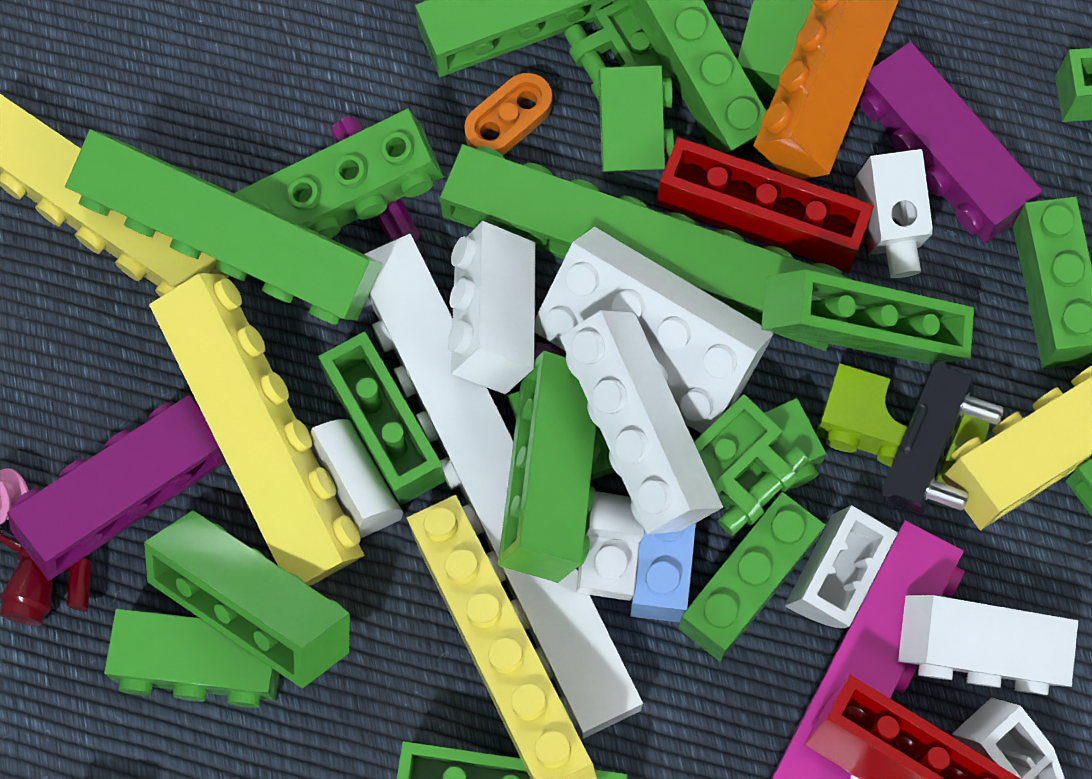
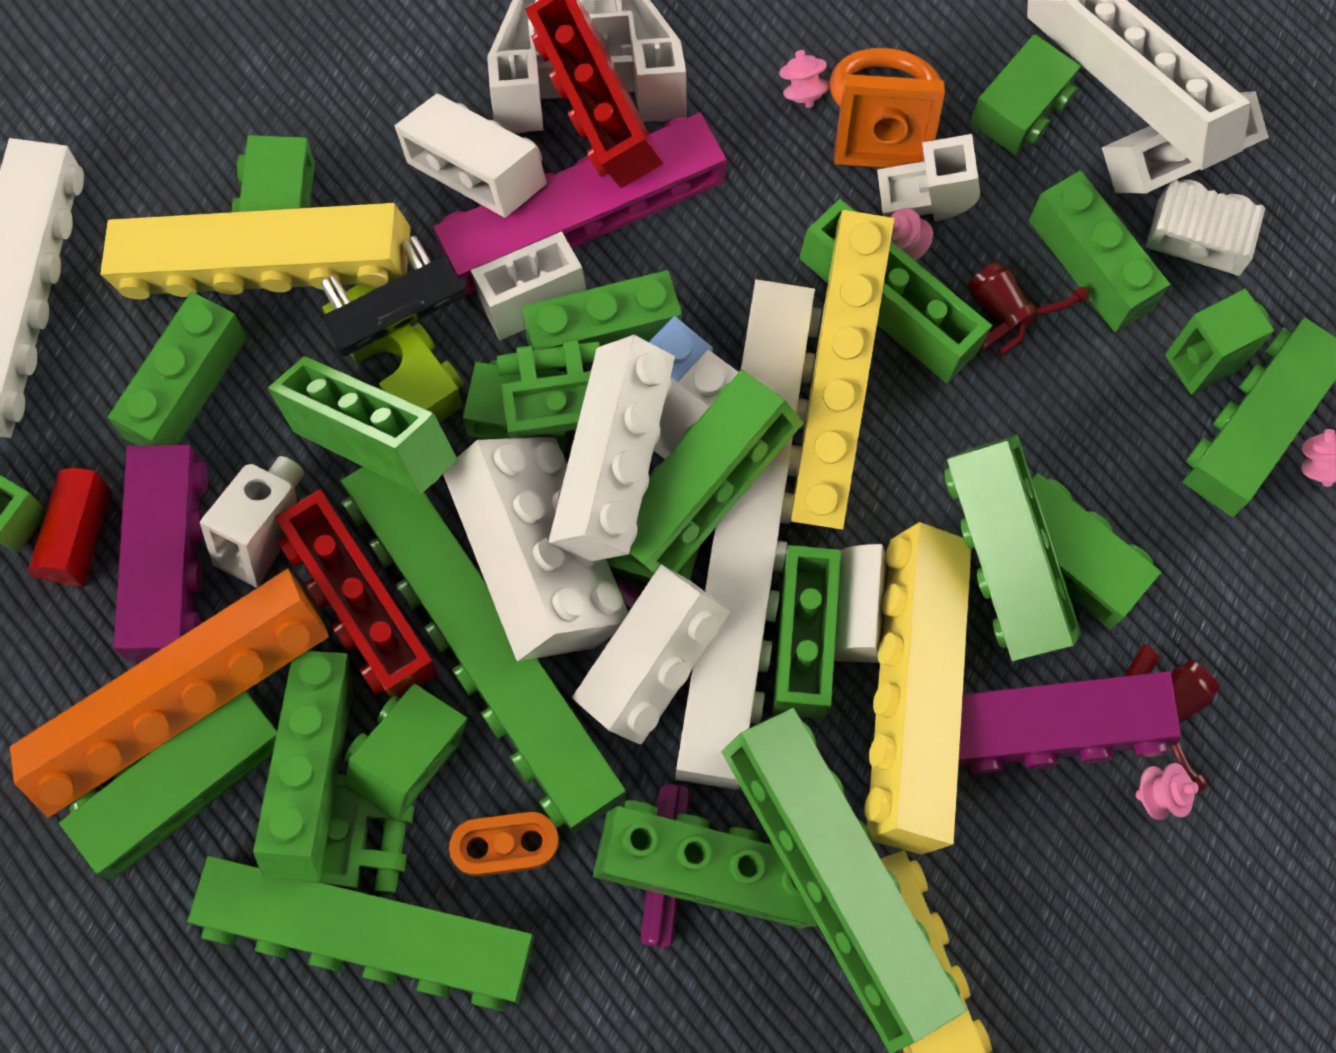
camera: 150 degrees left, 0 degrees up
(1031, 115) = (70, 527): none -> red brick

